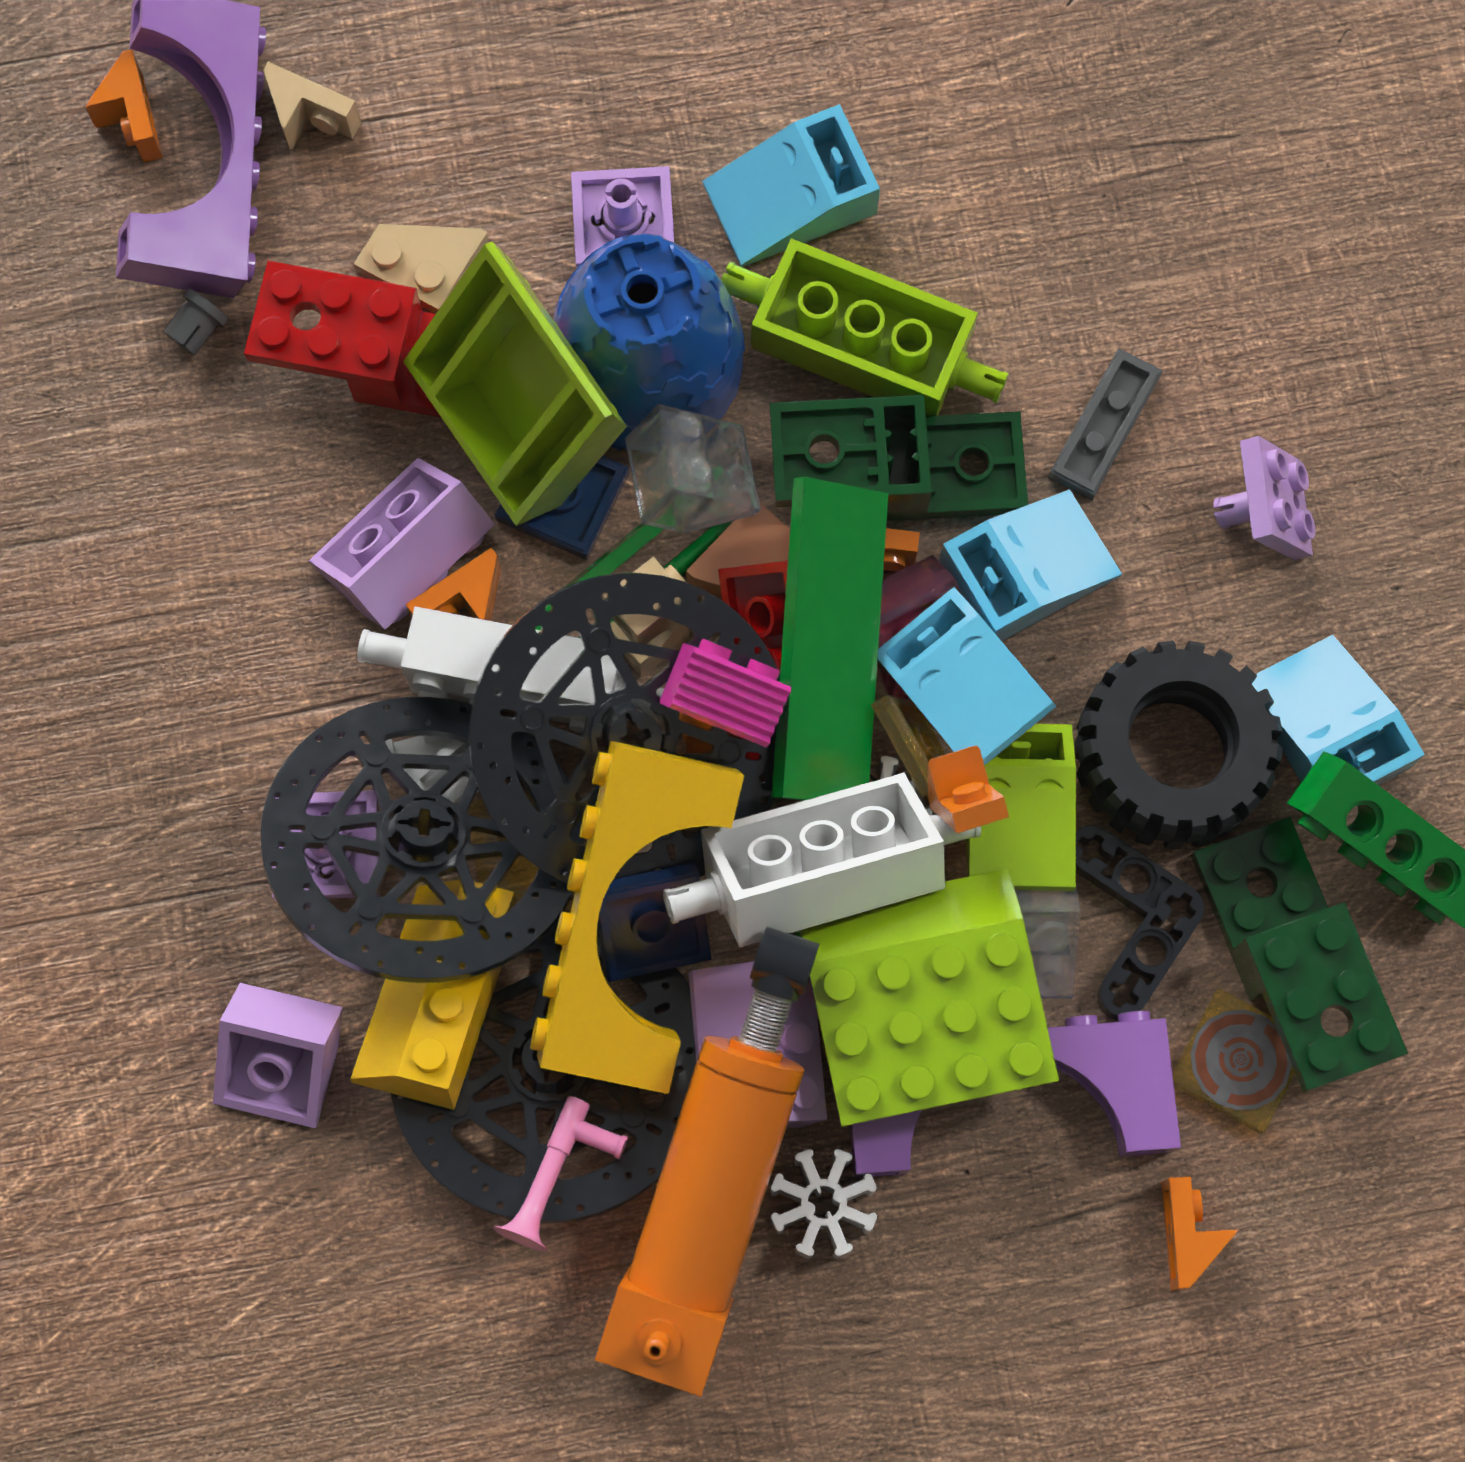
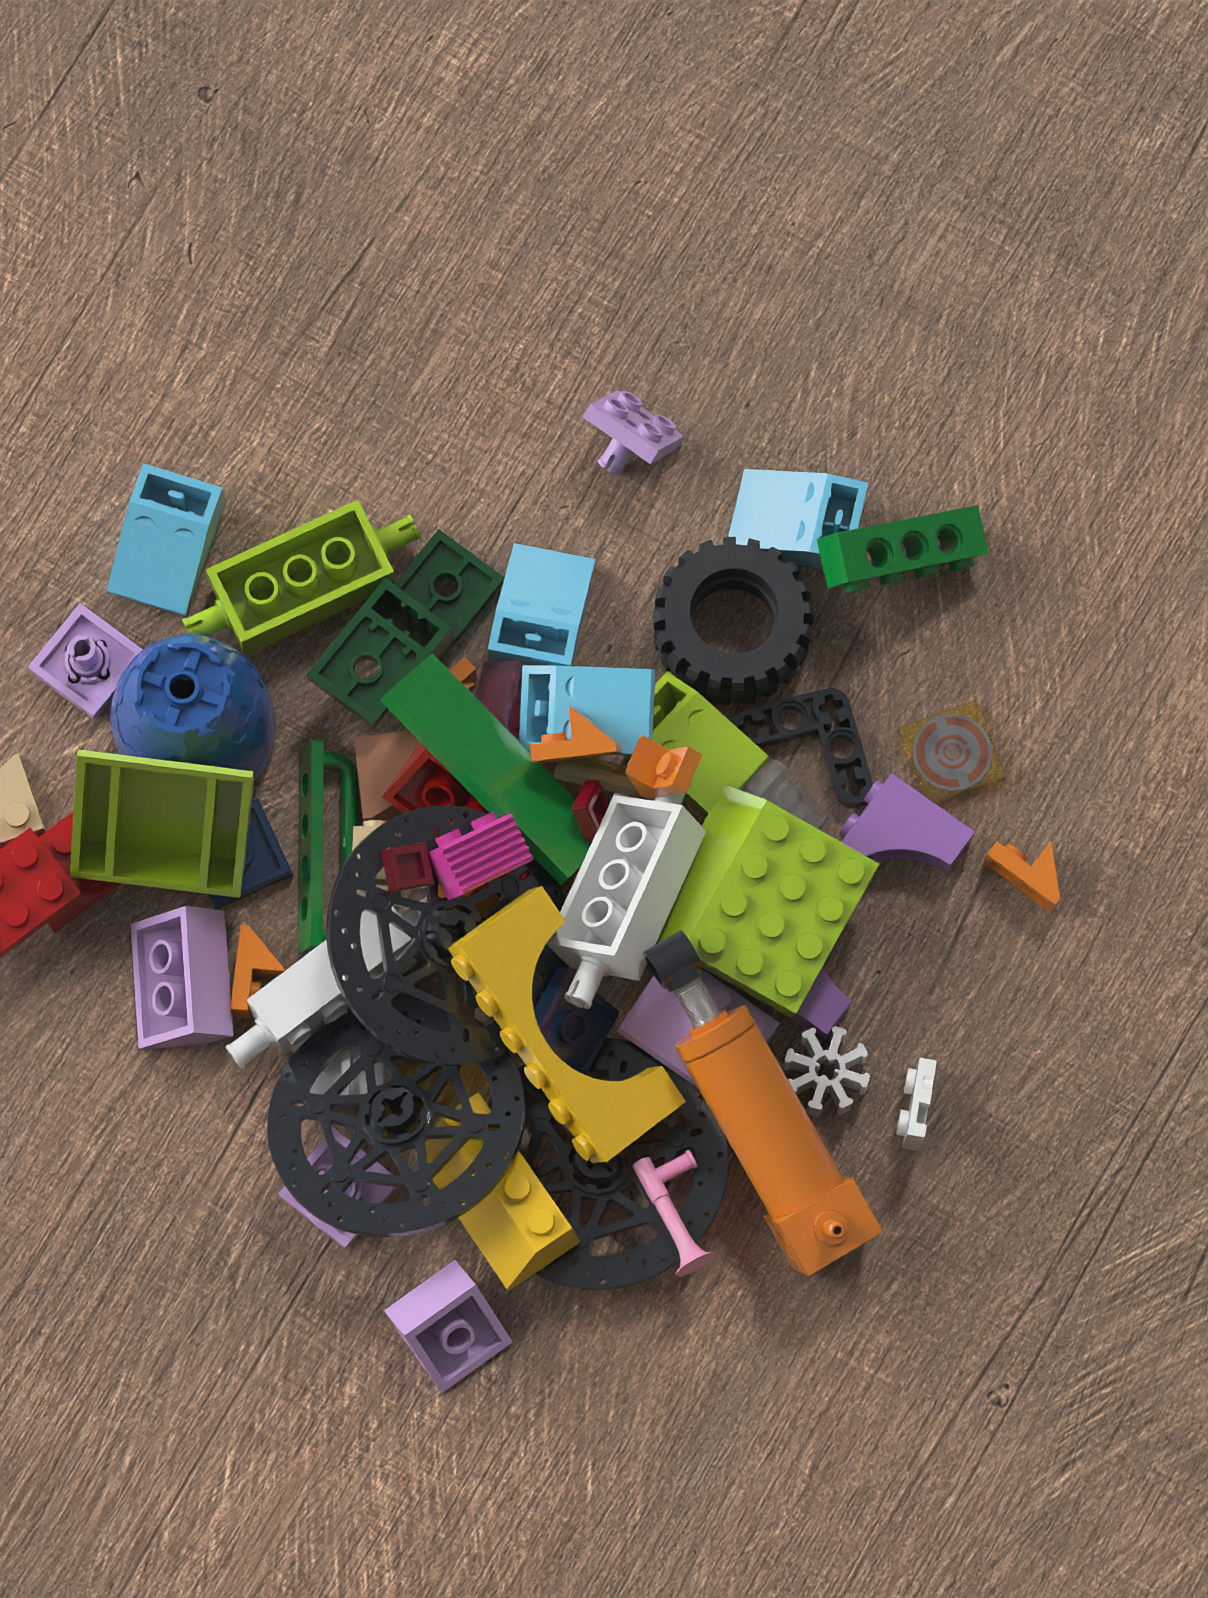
camera: 50 degrees left, 0 degrees up
(653, 637) = (407, 867): none -> dark red tile
(690, 470) = (305, 759): clear slope -> none
(870, 761) = (590, 808): none -> dark red tile
(886, 1307) = (912, 1122): none -> white wing
(929, 700) = (586, 742): none -> orange slope
(1105, 424) = (490, 484): dark grey tile -> none
(1298, 955) = (919, 662): dark green bracket -> none

